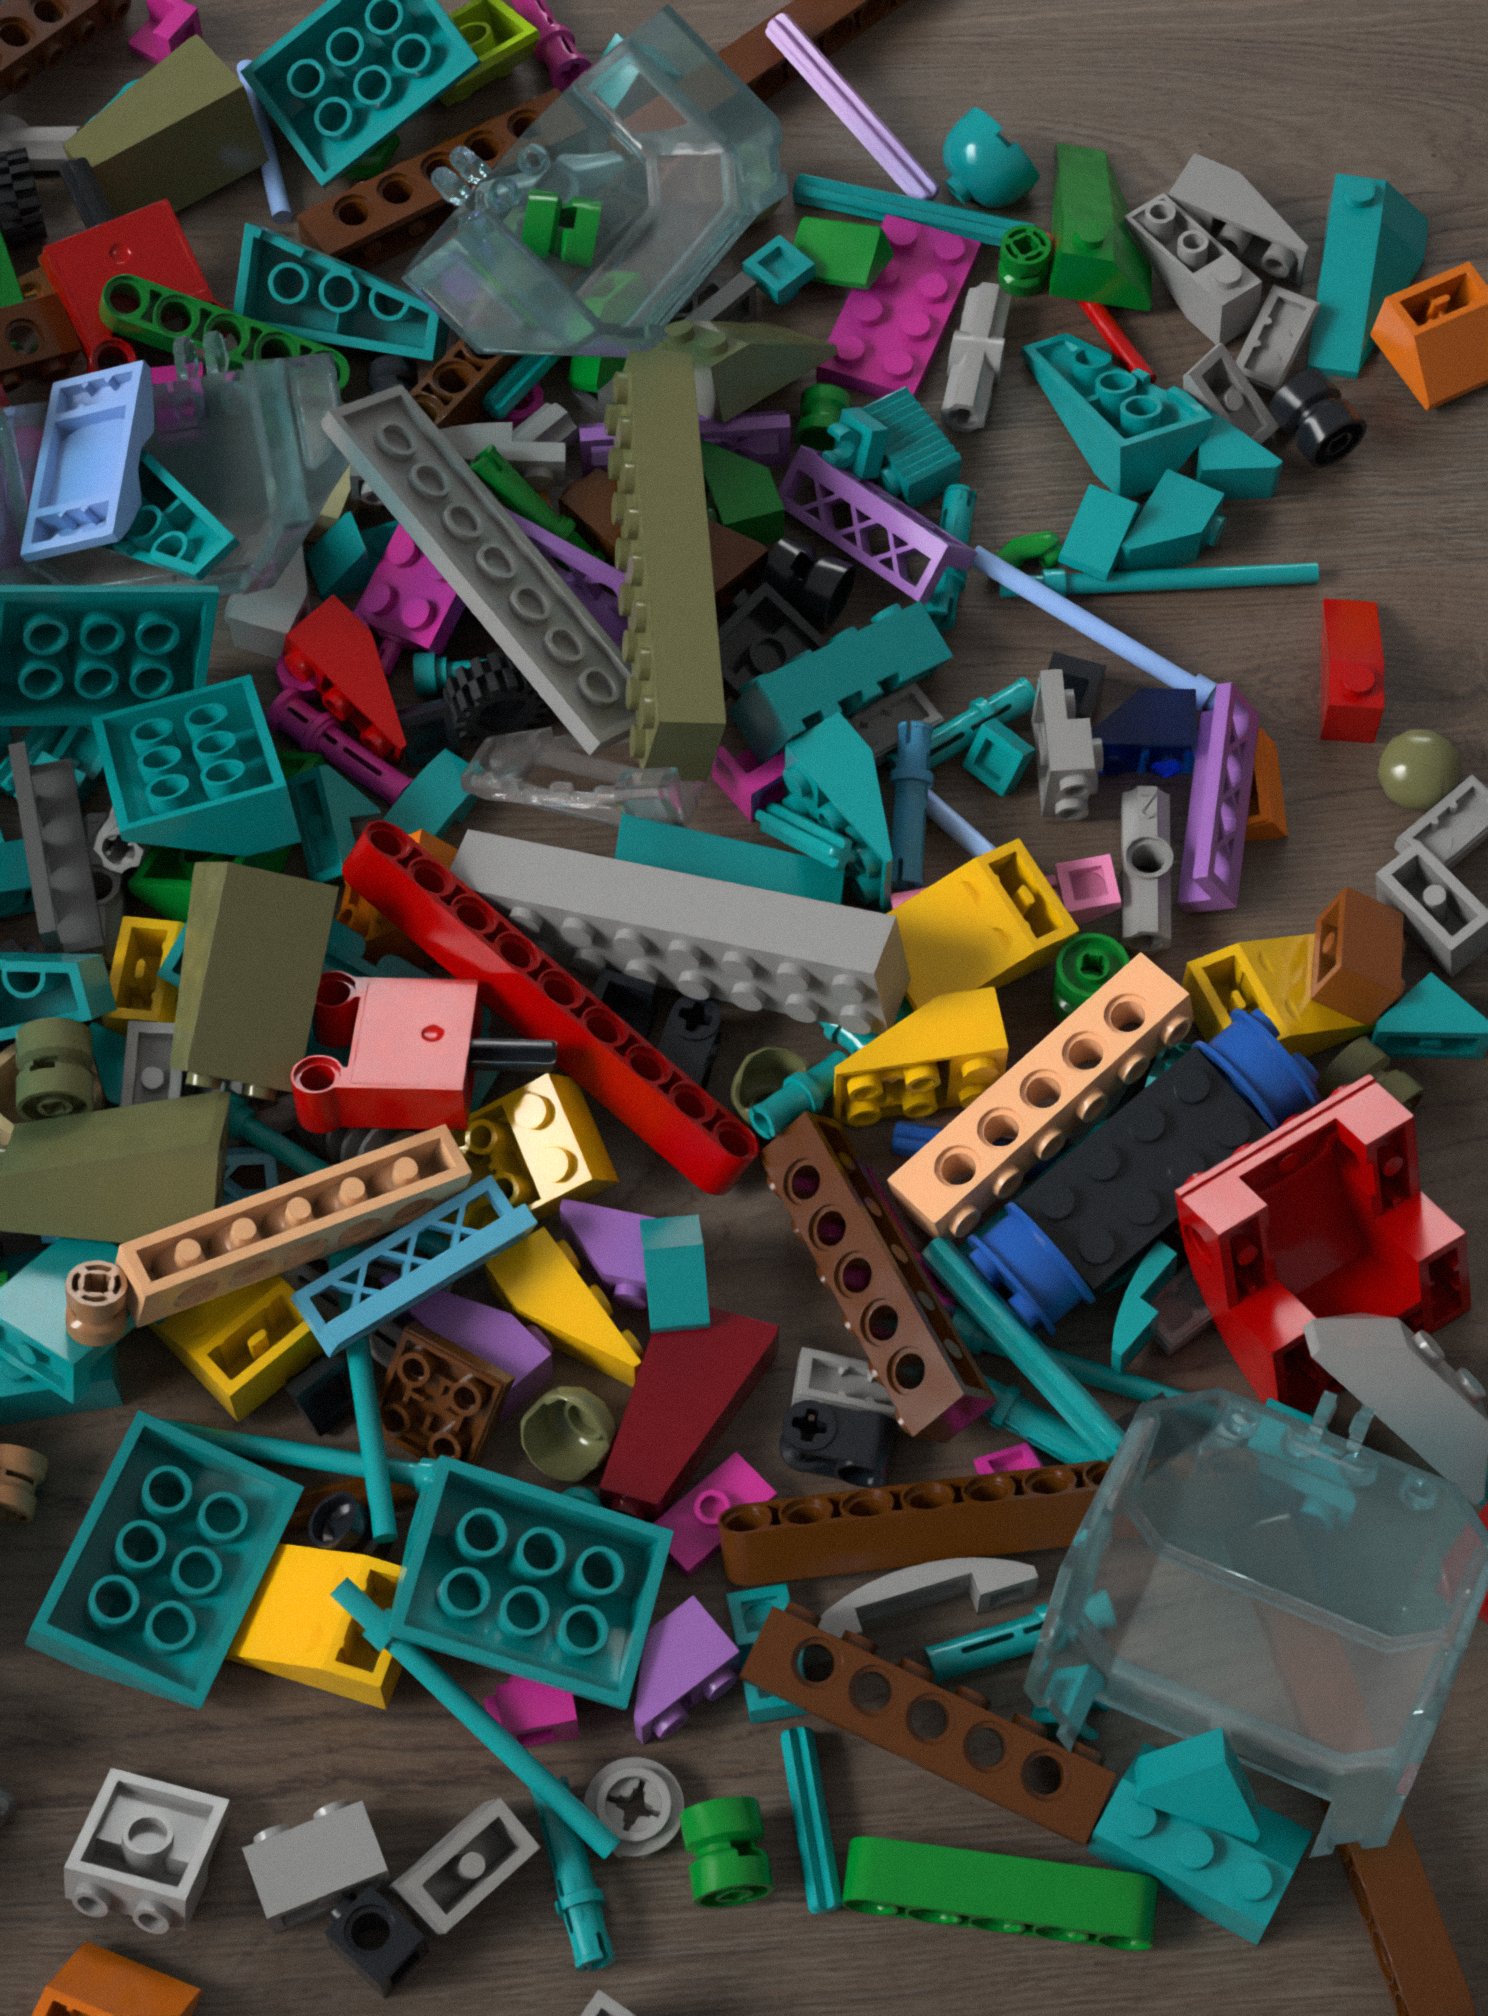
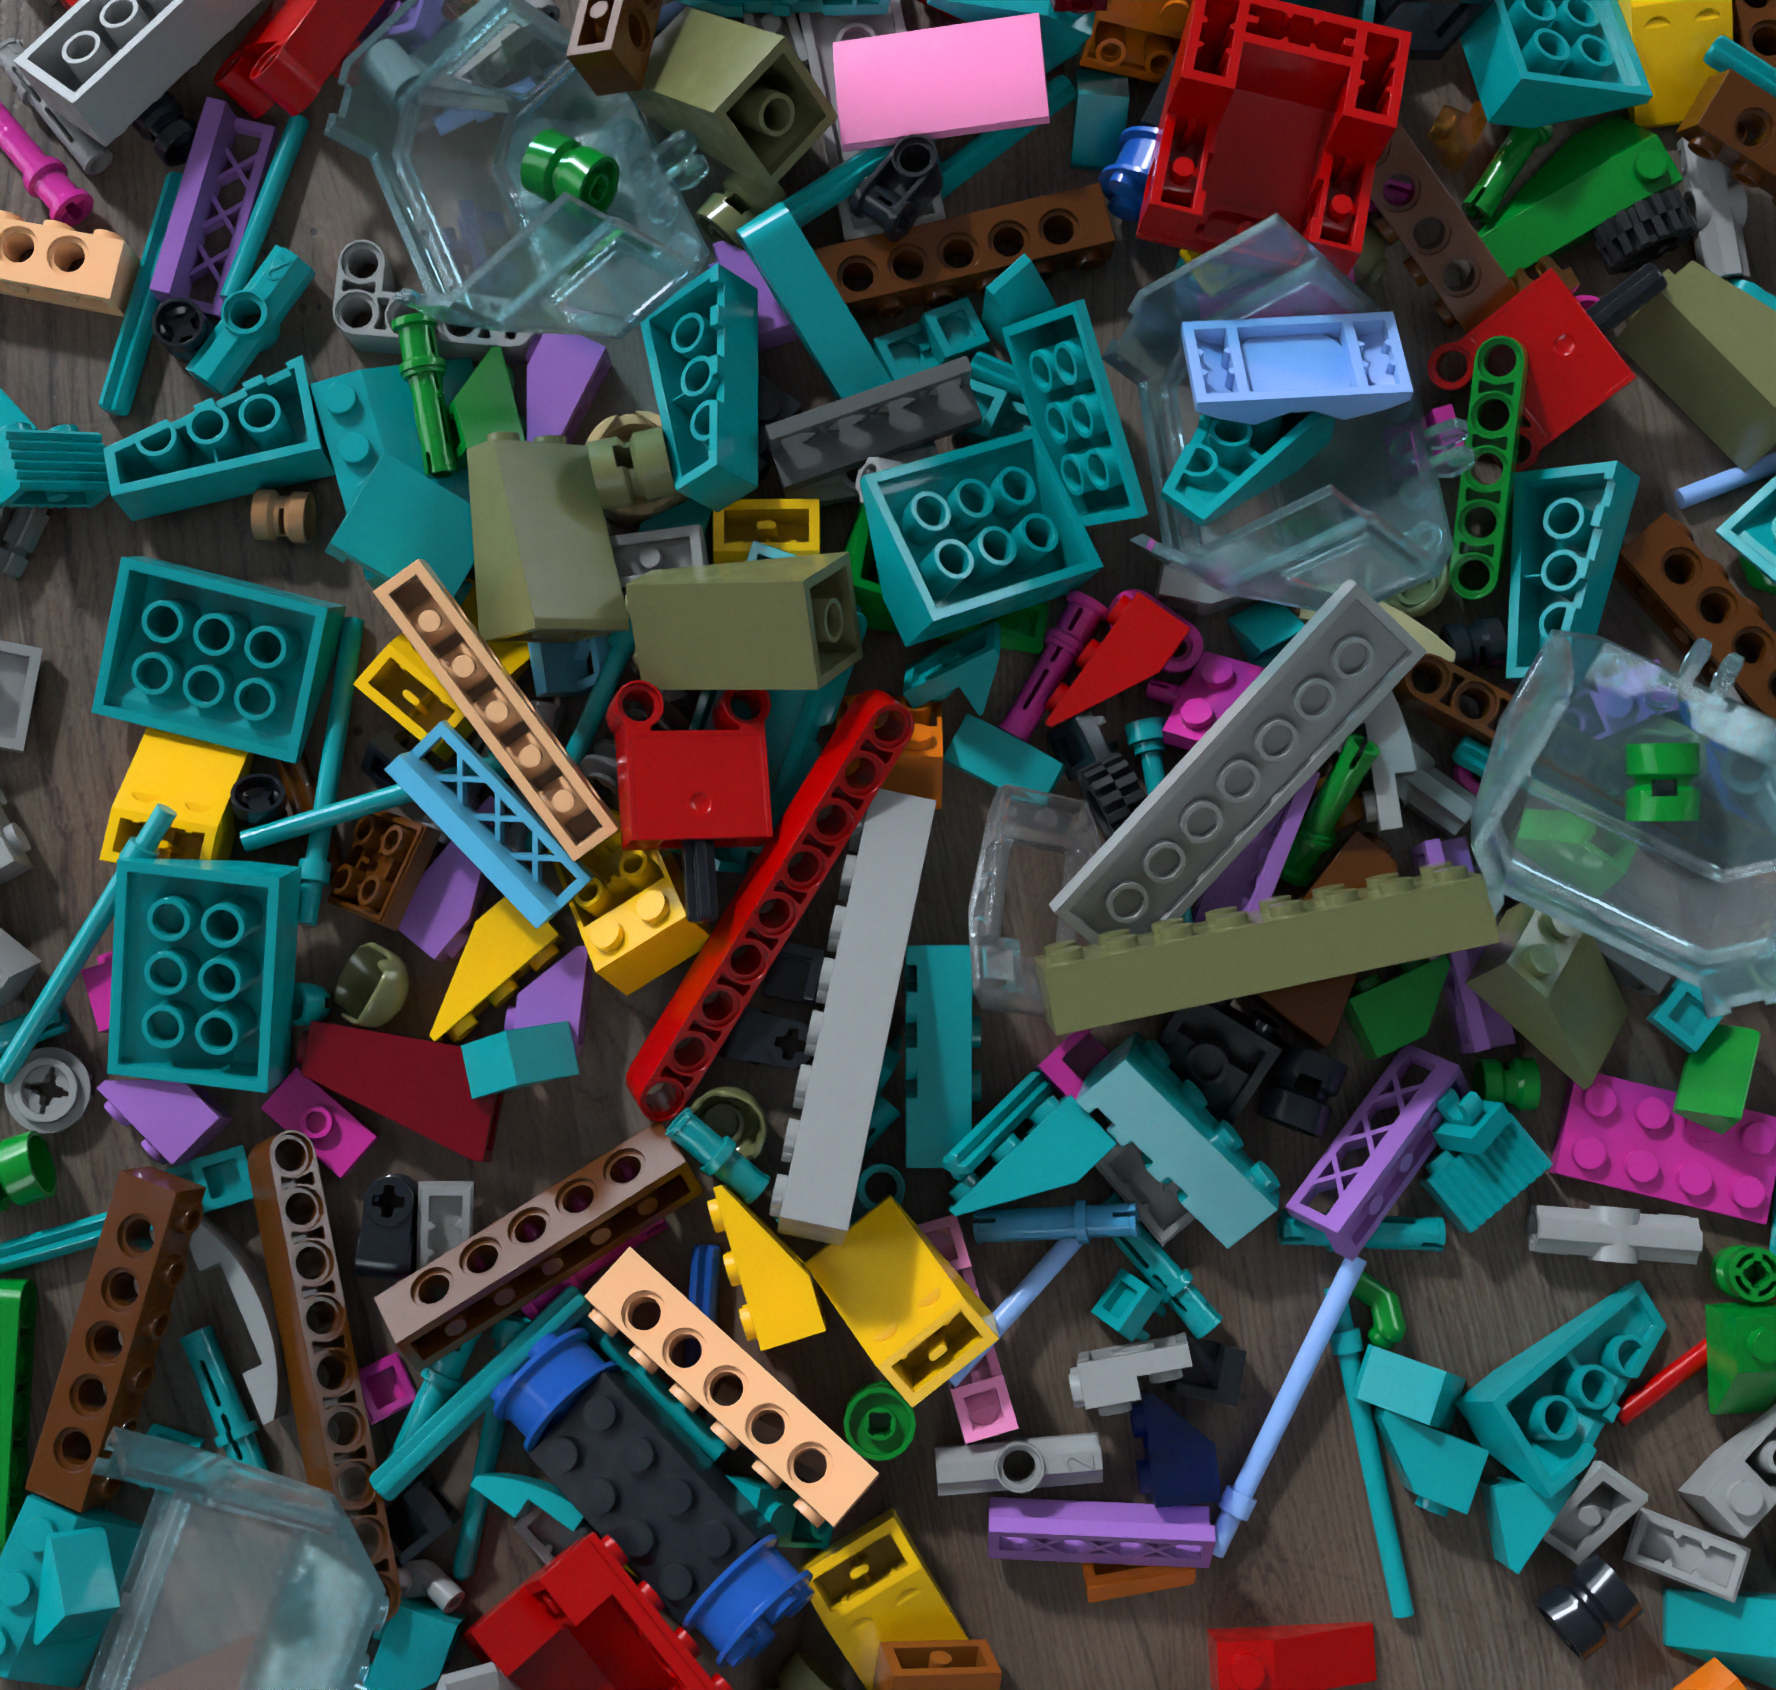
camera: 80 degrees right, 20 degrees up
(96, 1303) = (377, 558): medium nougat wheel -> none

